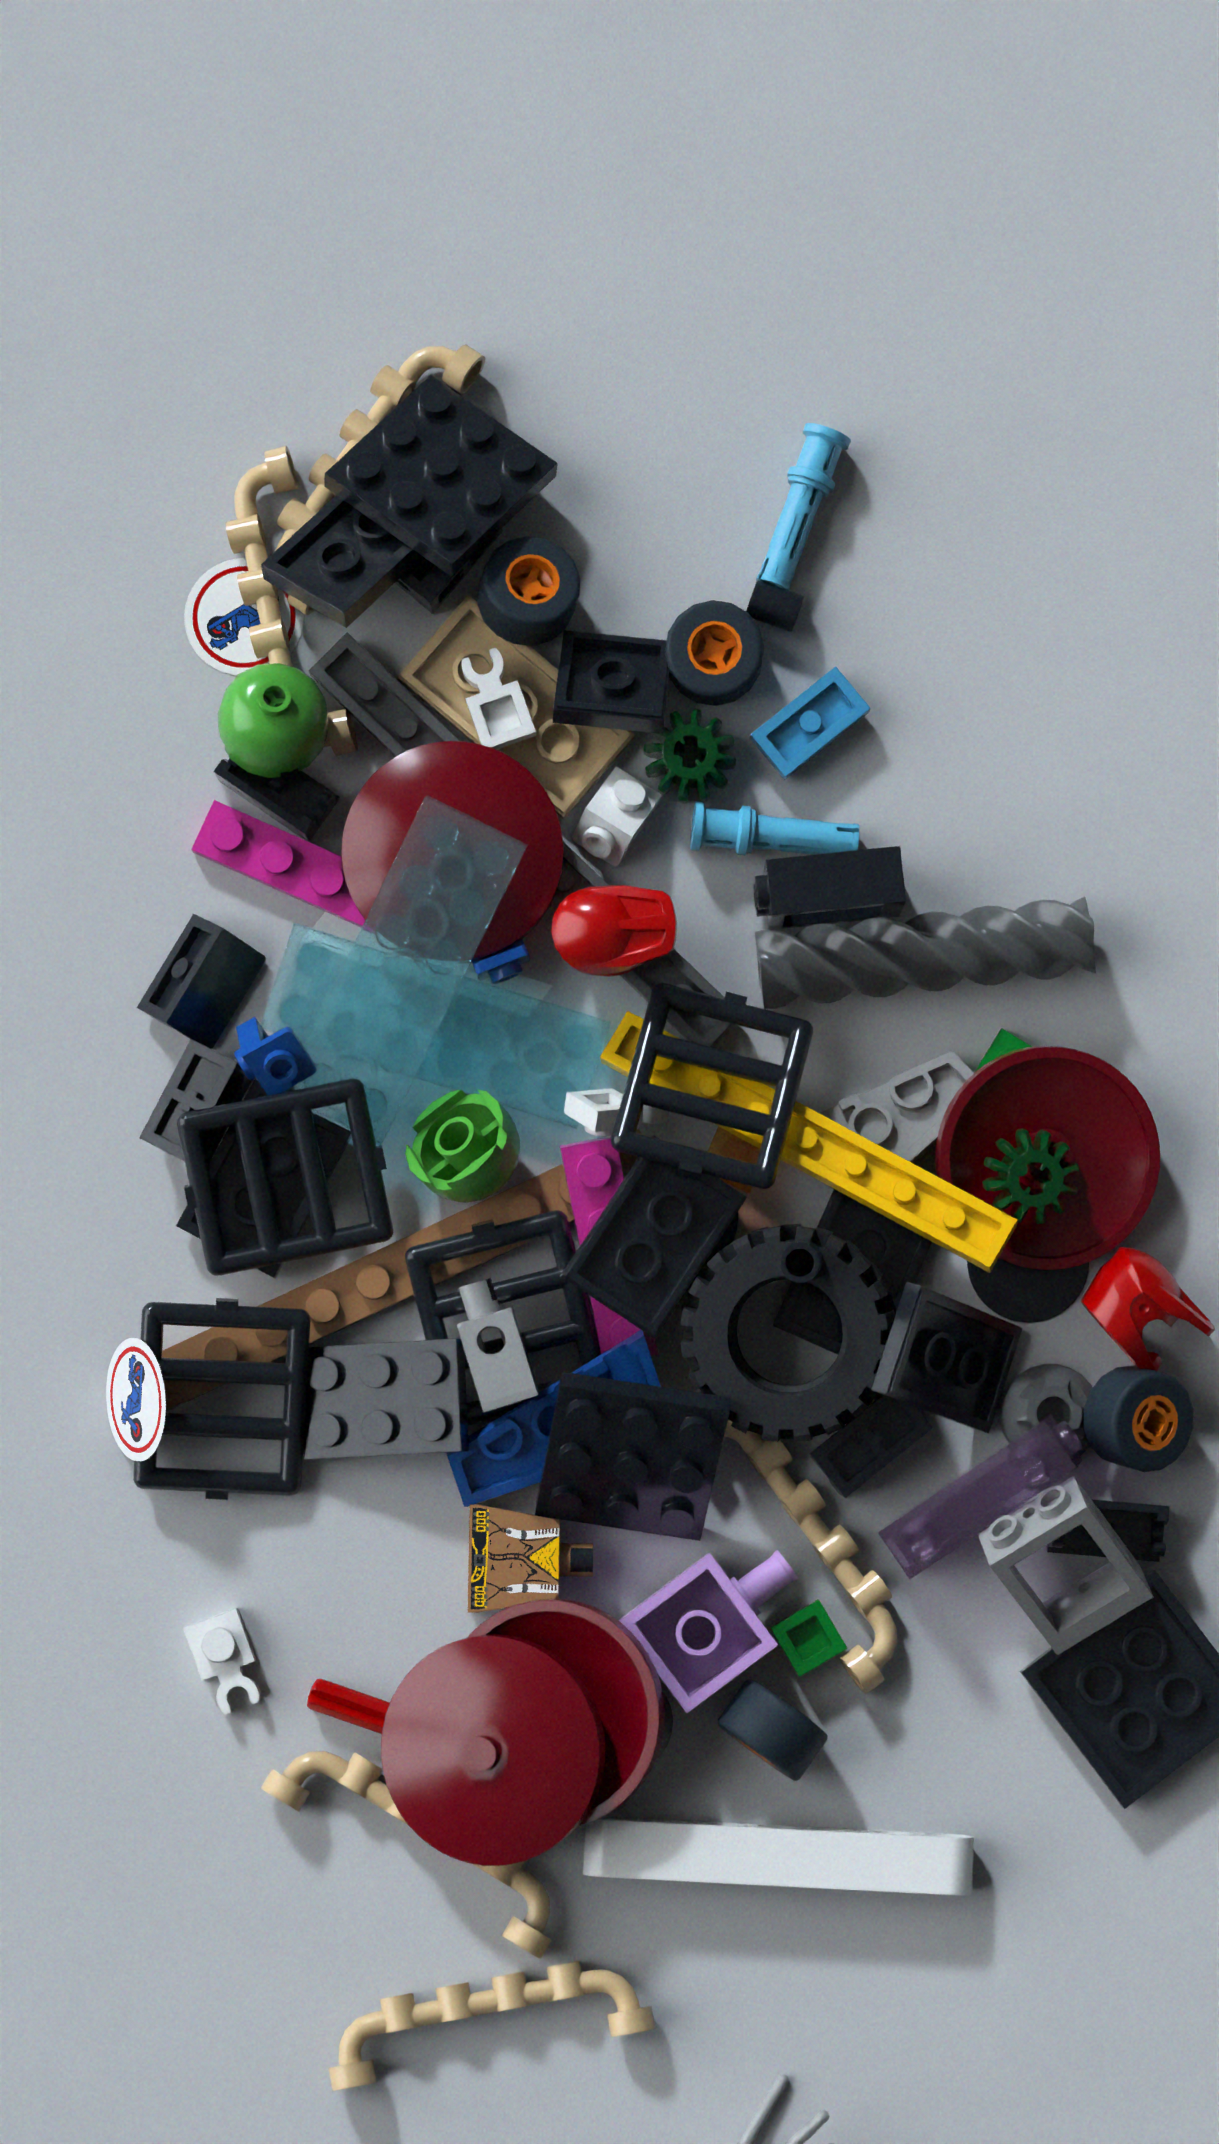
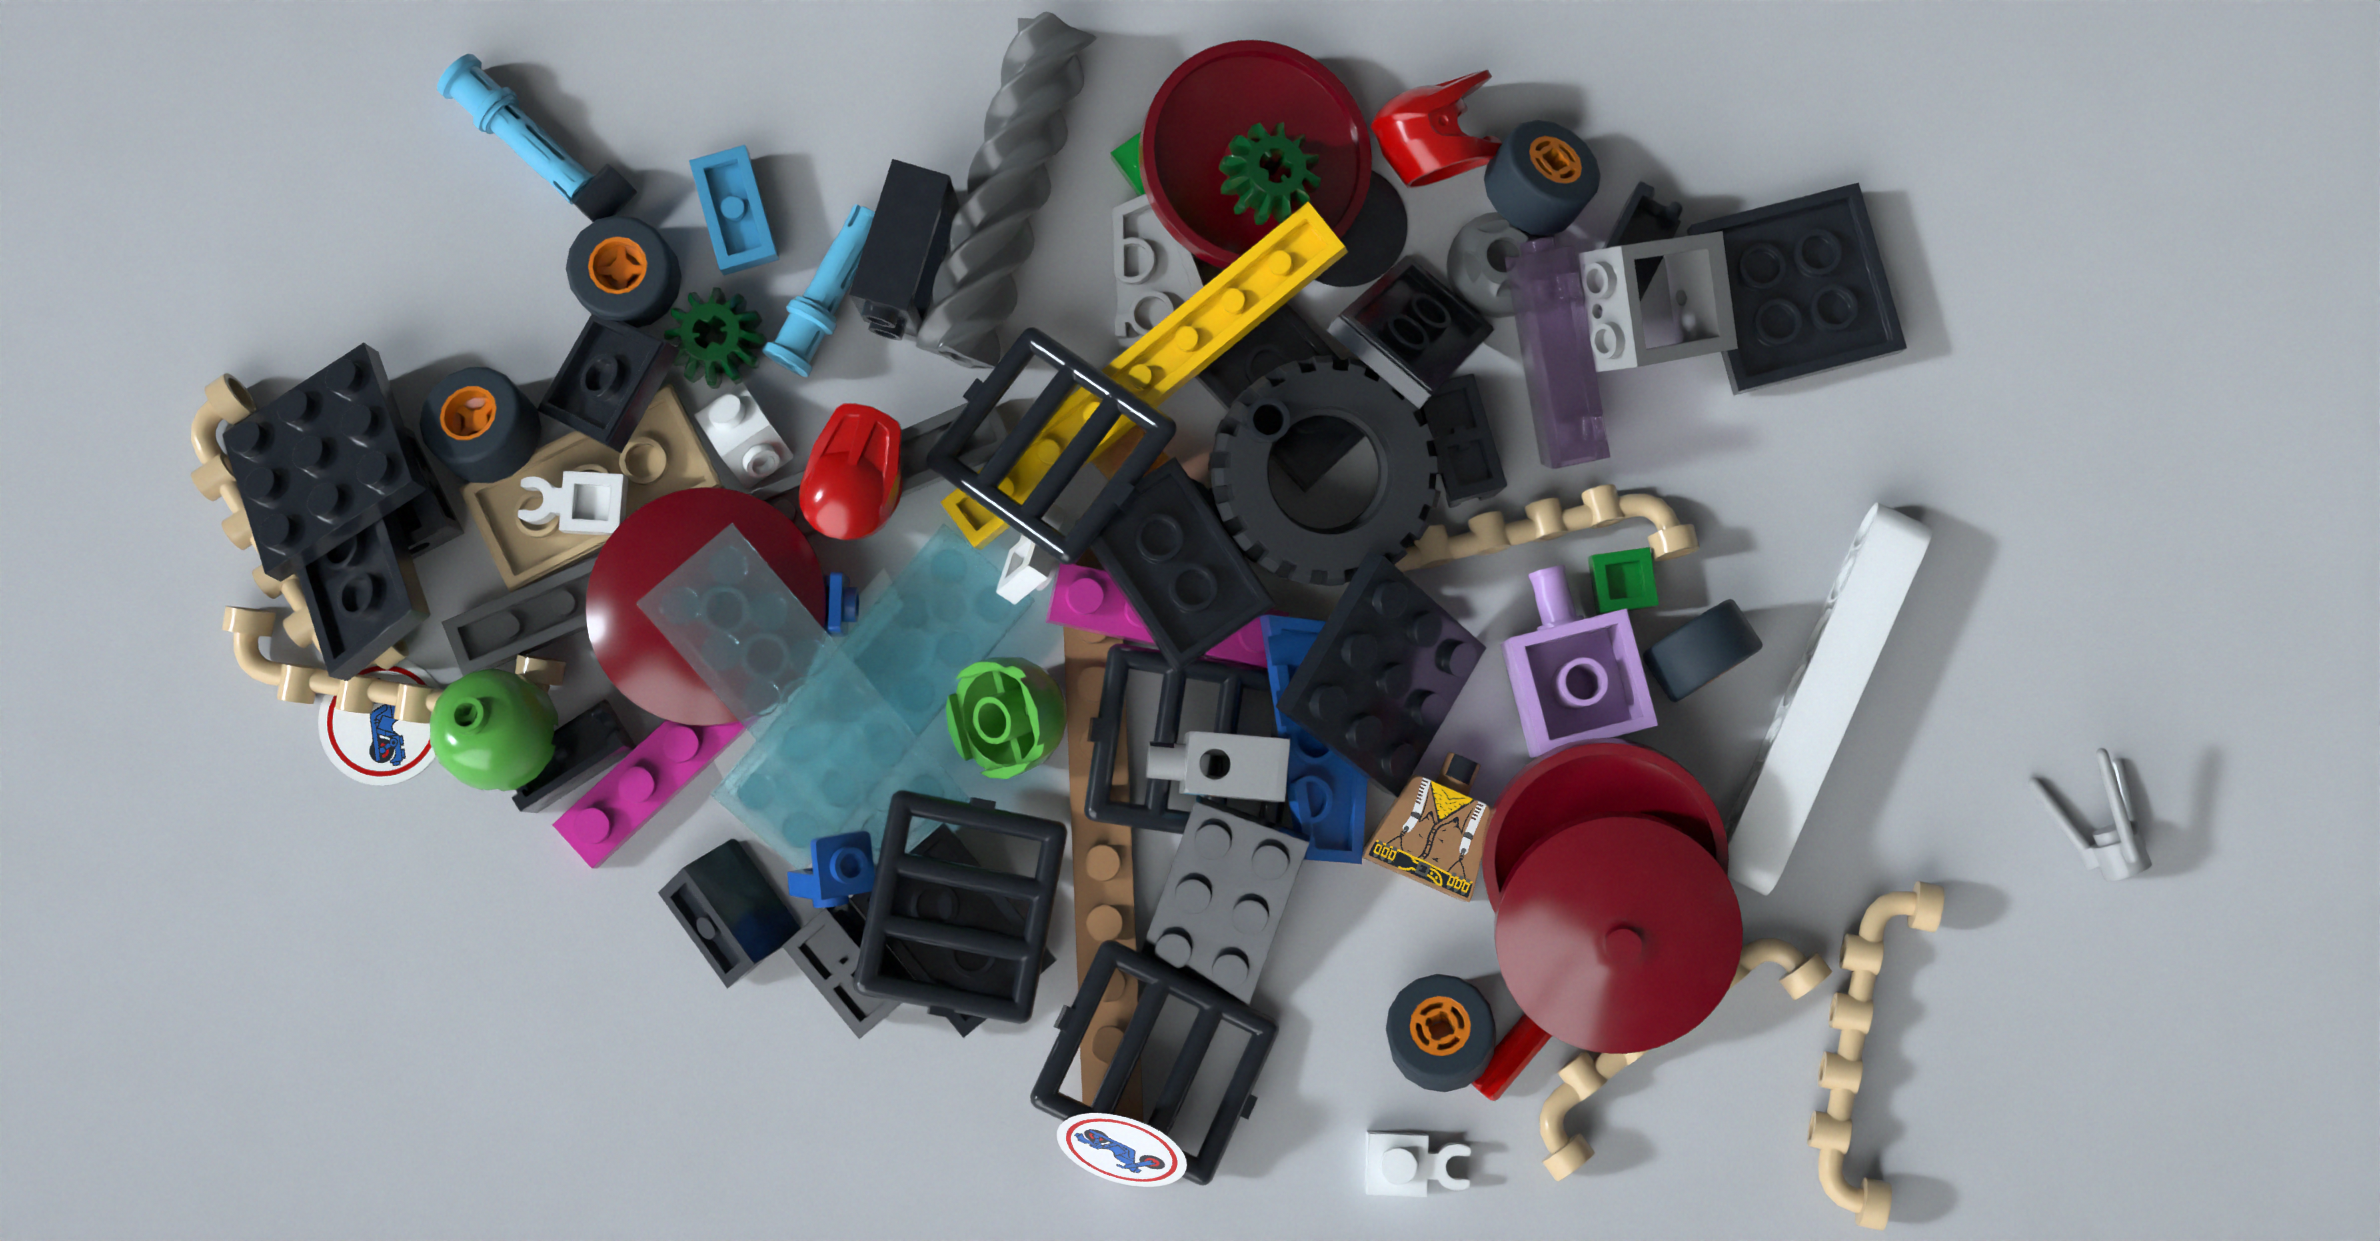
camera: 75 degrees left, 0 degrees up
(341, 1655) = (1441, 1055): none -> black wheel

